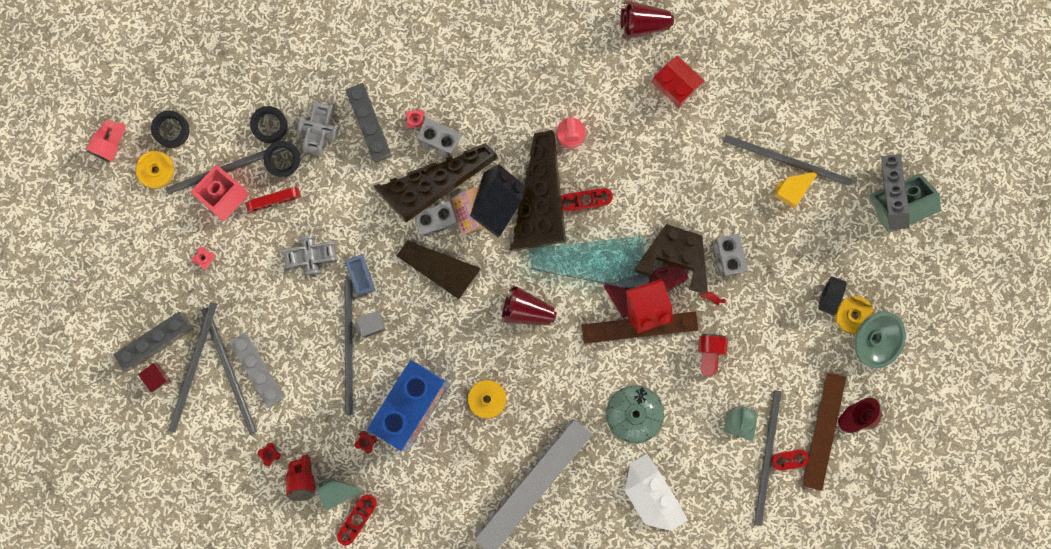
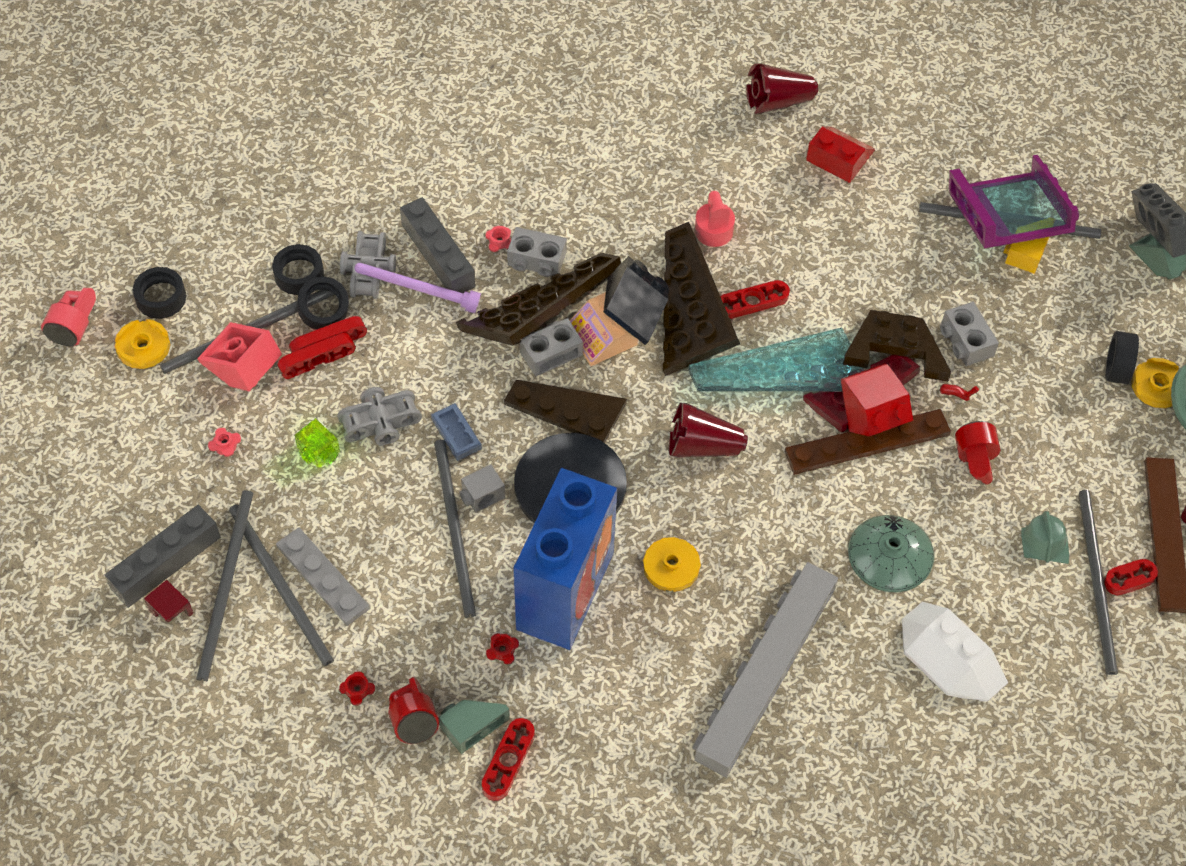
camera: 15 degrees left, 25 degrees down
(264, 272) = (317, 444): none -> clear neon green brick
(297, 181) = (353, 326): none -> red beam
(384, 170) = (467, 300): none -> lavender piece
(430, 326) = (570, 451): none -> black dish
(790, 155) = (1014, 206): none -> panel

